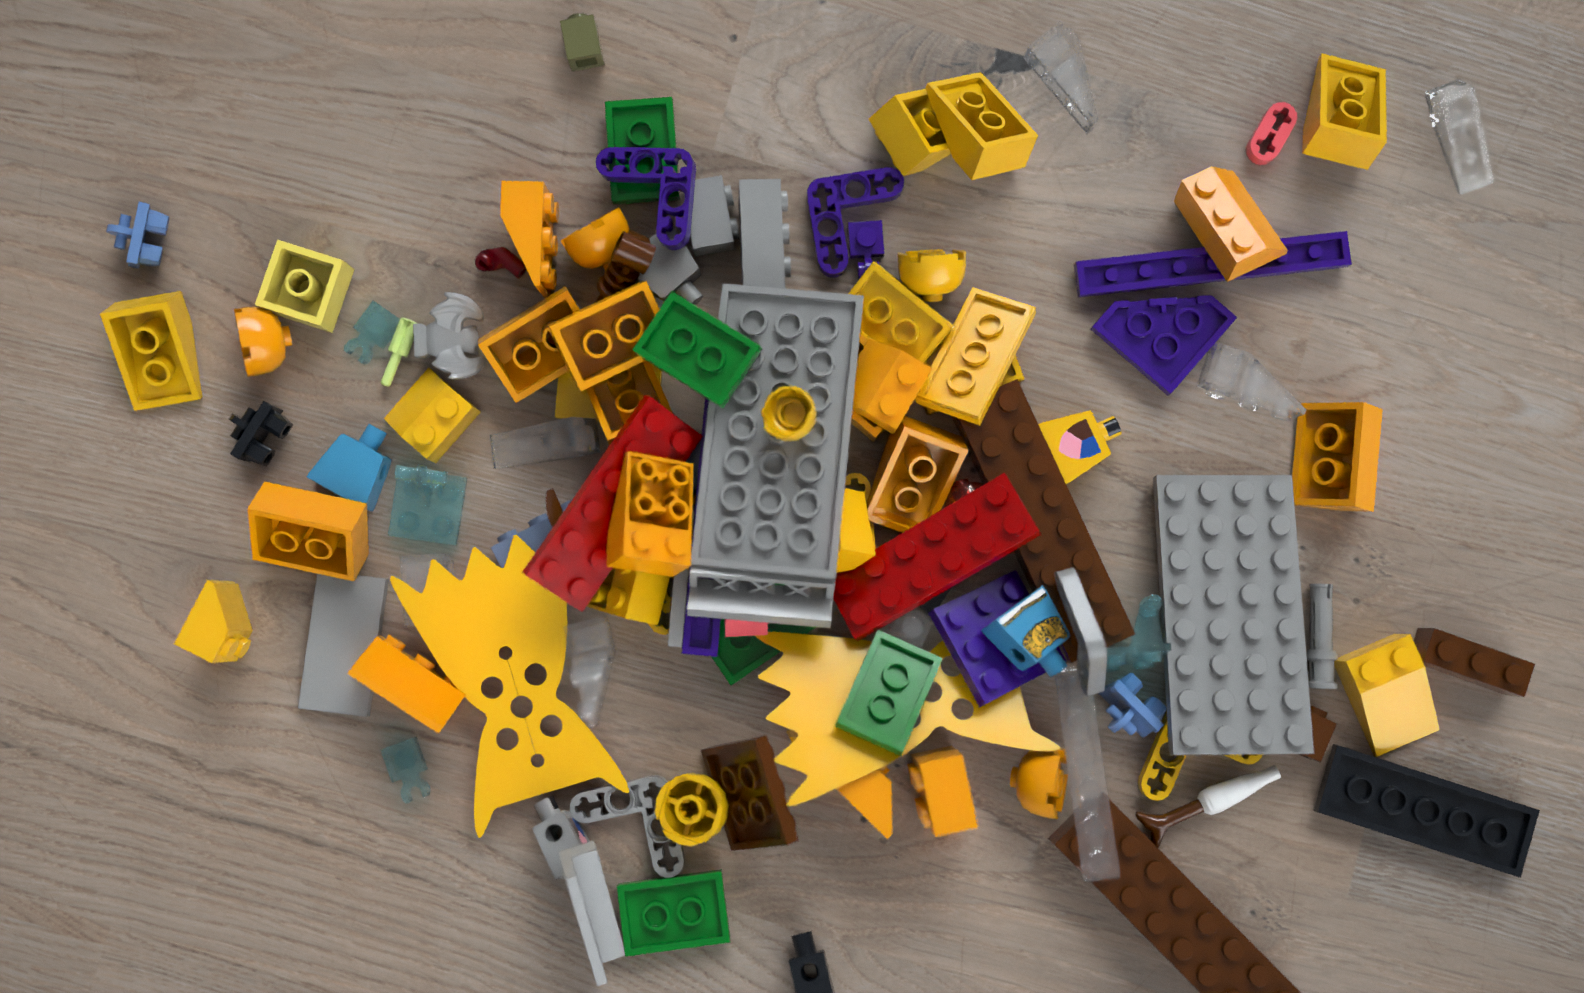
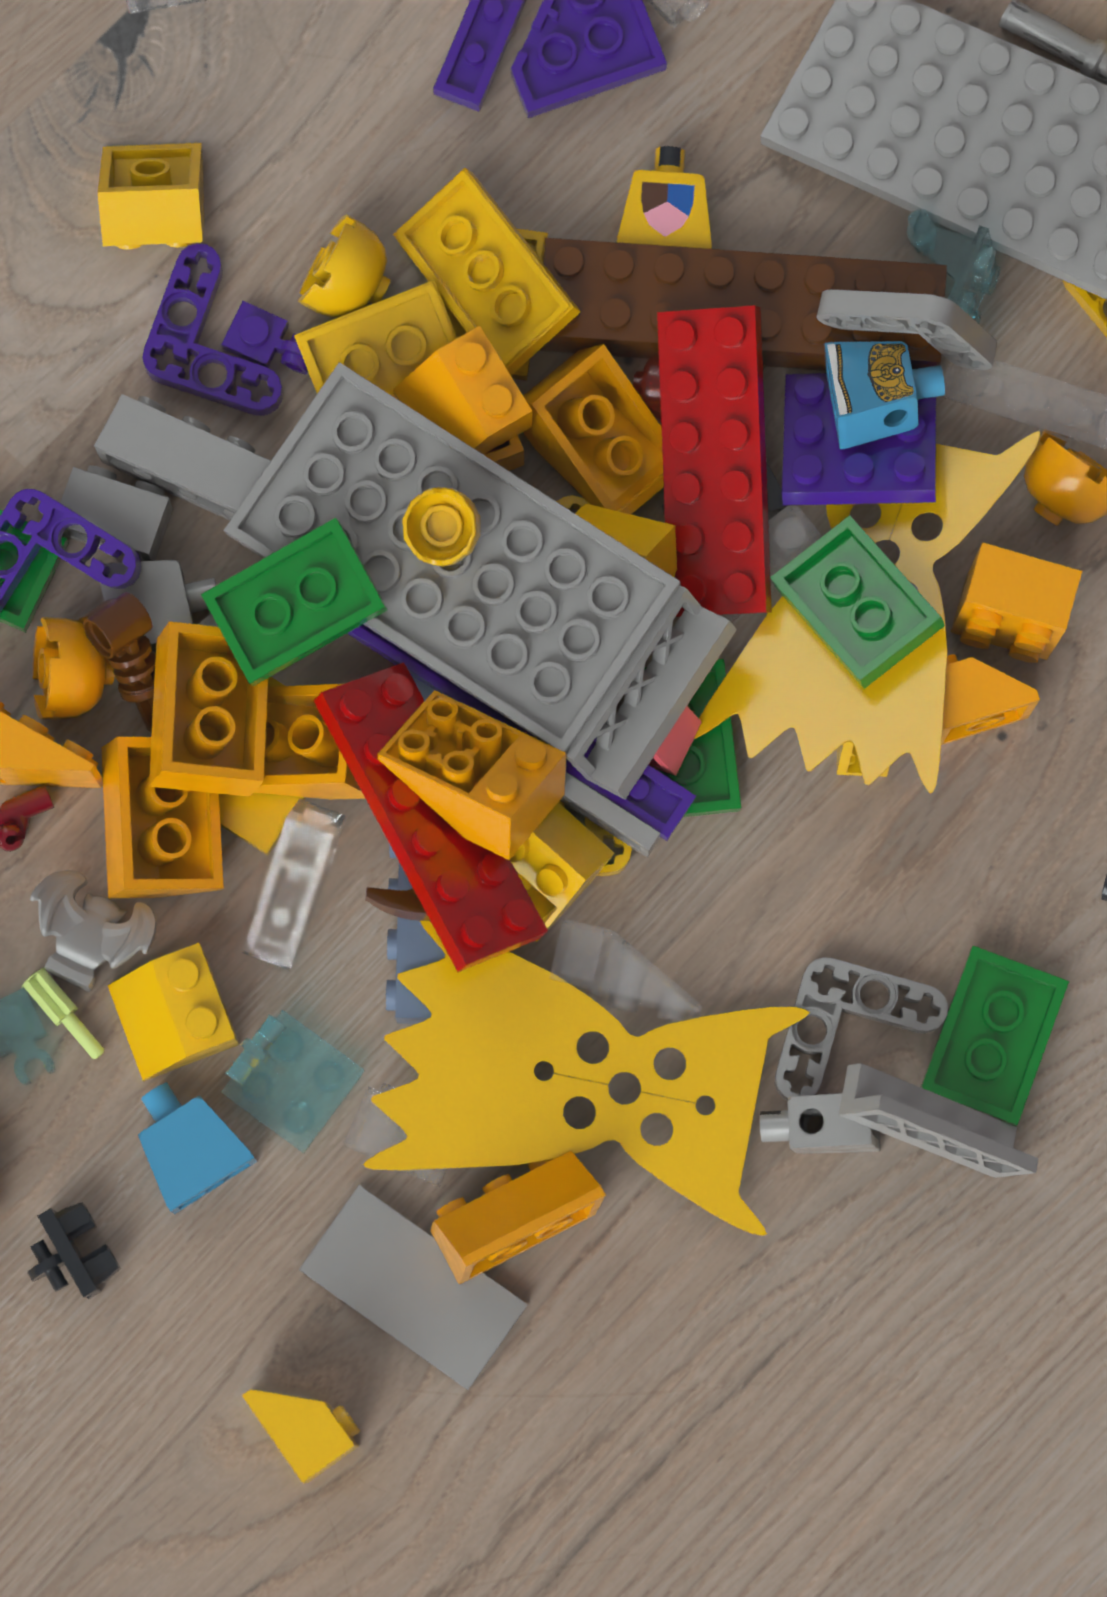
camera: 65 degrees left, 5 degrees down
(308, 531) = (245, 1242): light orange brick -> none
(404, 763) = (615, 1284): clear light blue plate -> none
(691, 809) = (872, 934): yellow cylinder -> none
(754, 794) = (892, 849): reddish brown plate -> none
(980, 126) = (192, 110): yellow slope -> none
(1129, 711) = (1037, 327): medium blue hips -> none

